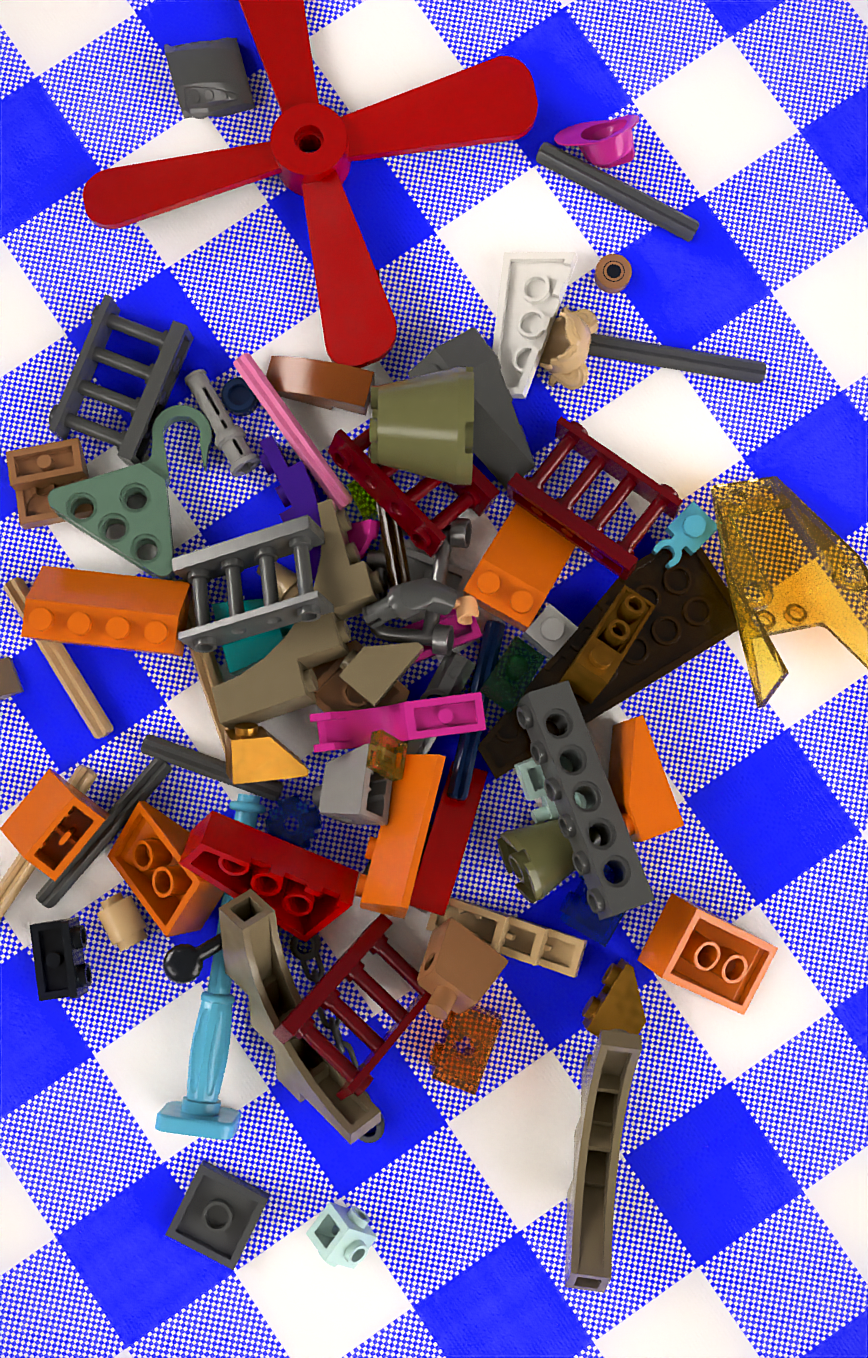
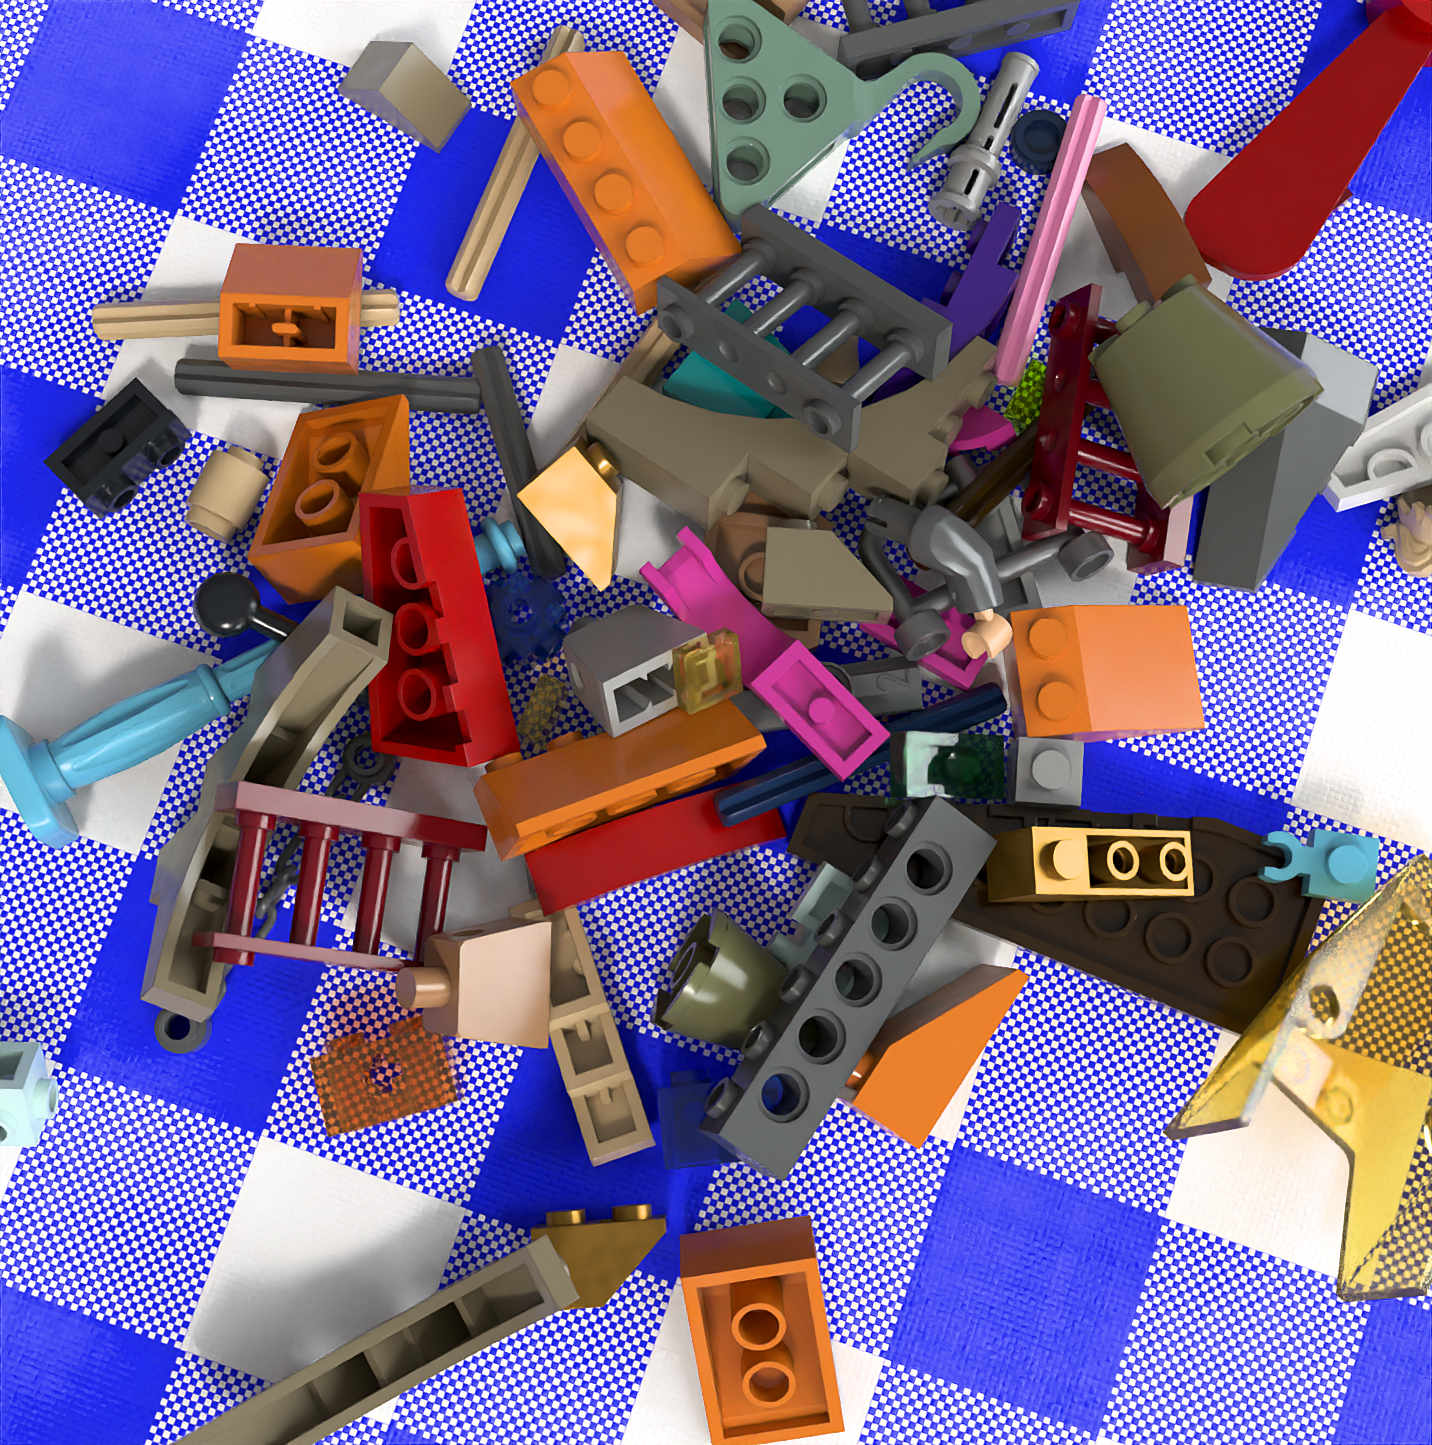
camera: 50 degrees right, 5 degrees down
(344, 846) = (542, 711): none -> clear yellow tile
(588, 533) = (1219, 729): dark red fence -> none

